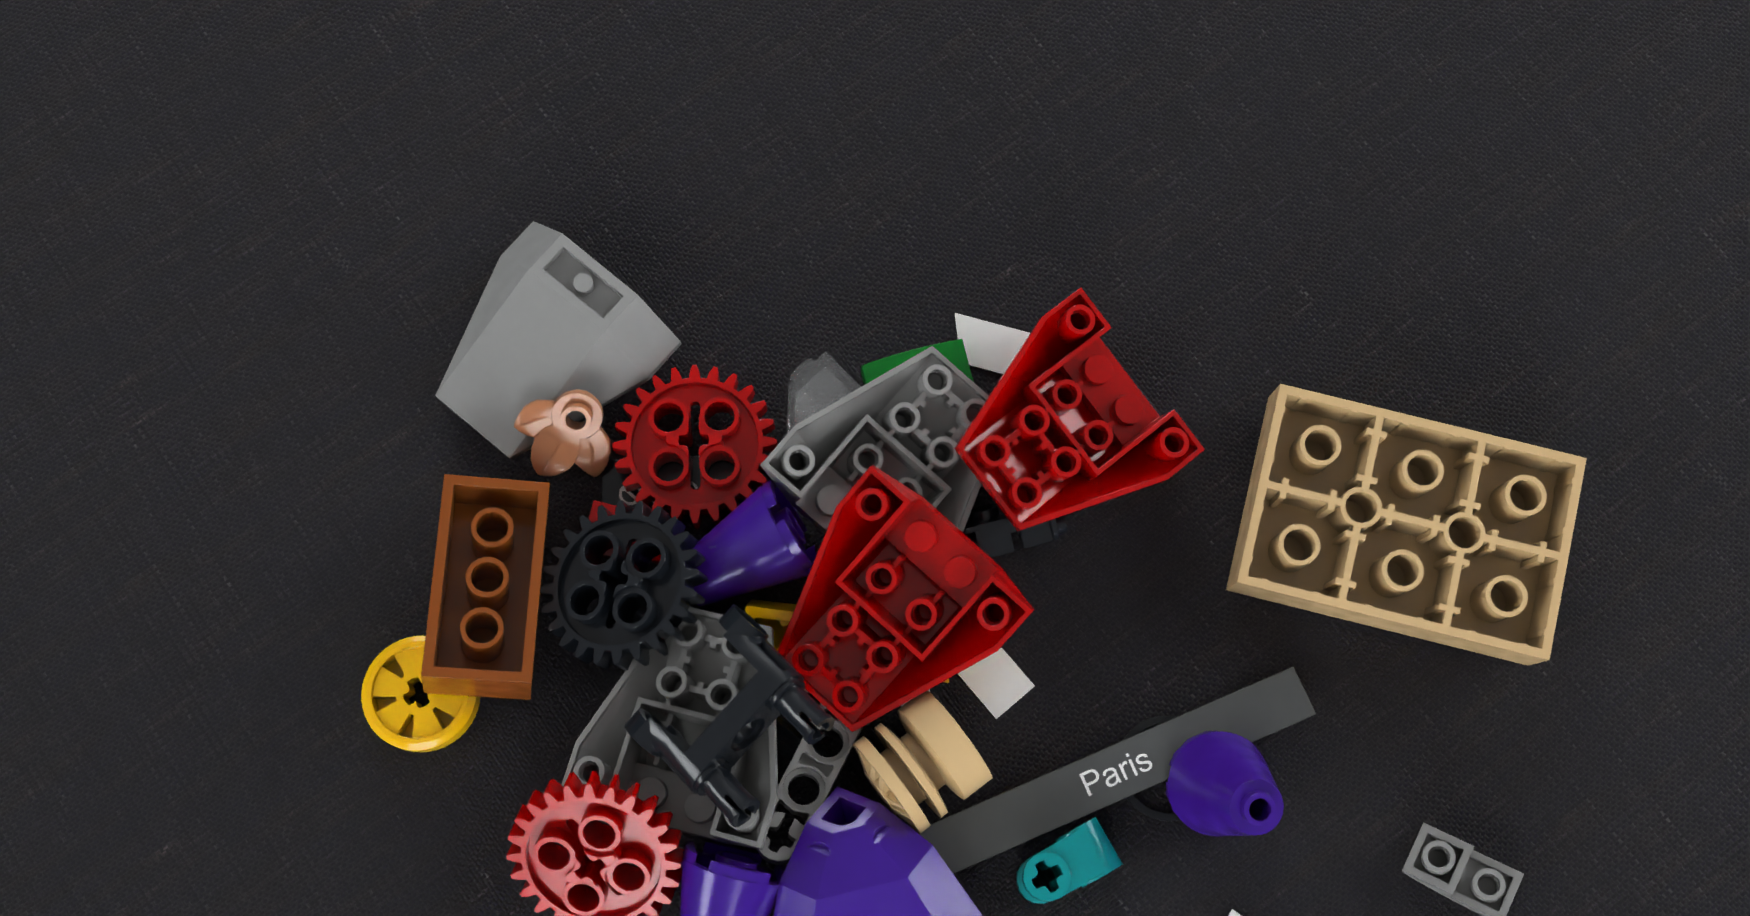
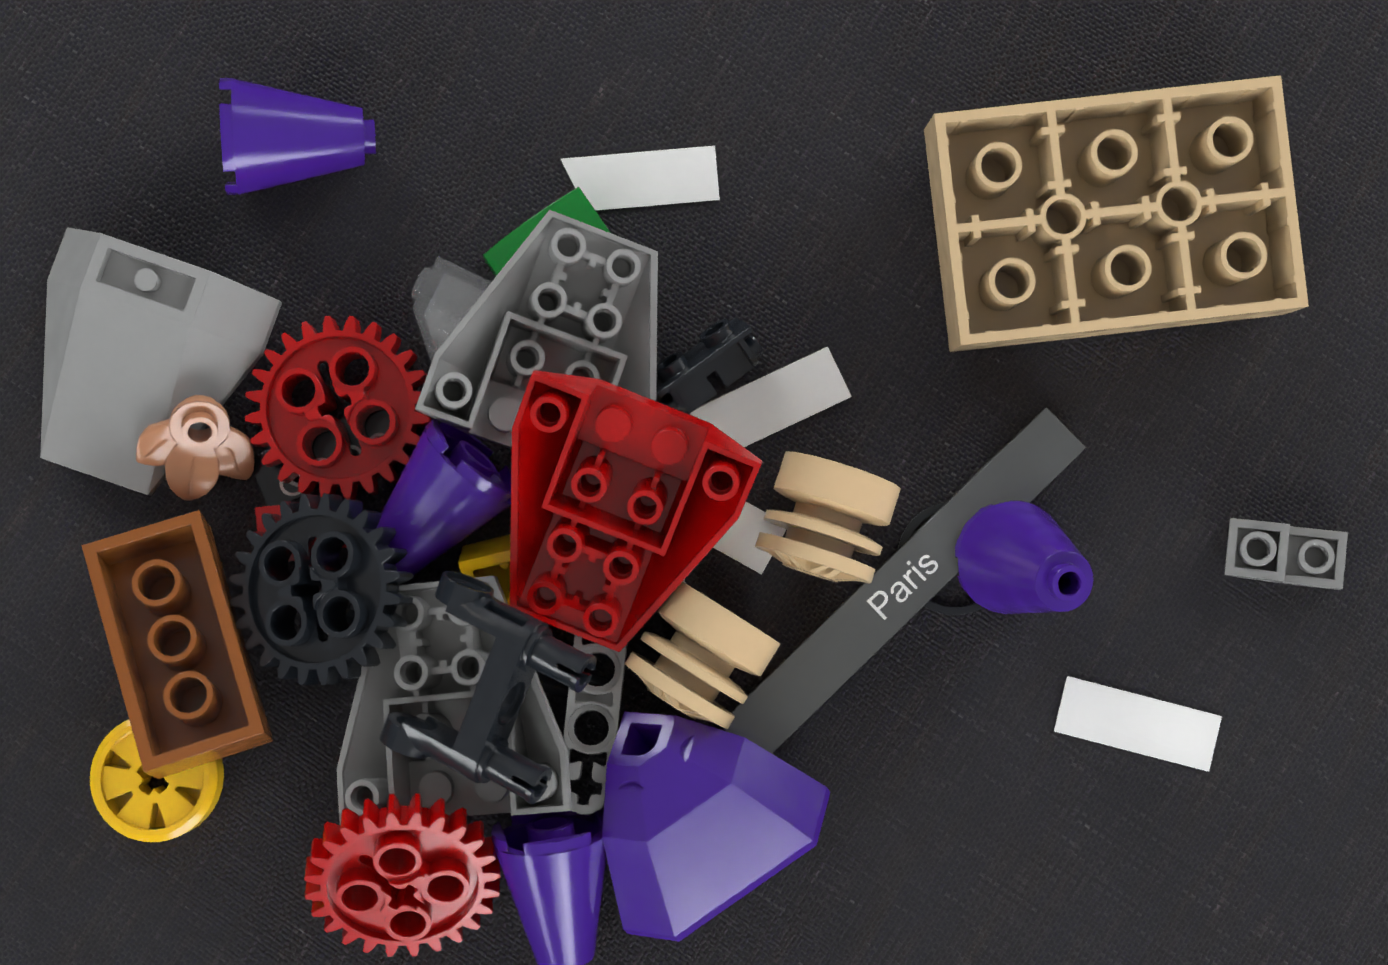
camera: 20 degrees left, 10 degrees up
(741, 214) = (287, 136): none -> dark purple cone
(1064, 695) = (827, 517): none -> tan wheel
(1068, 575) = (777, 399): none -> white sticker
(1070, 424) = (726, 239): red wedge -> none
(1075, 860) = (895, 688): teal piece -> none

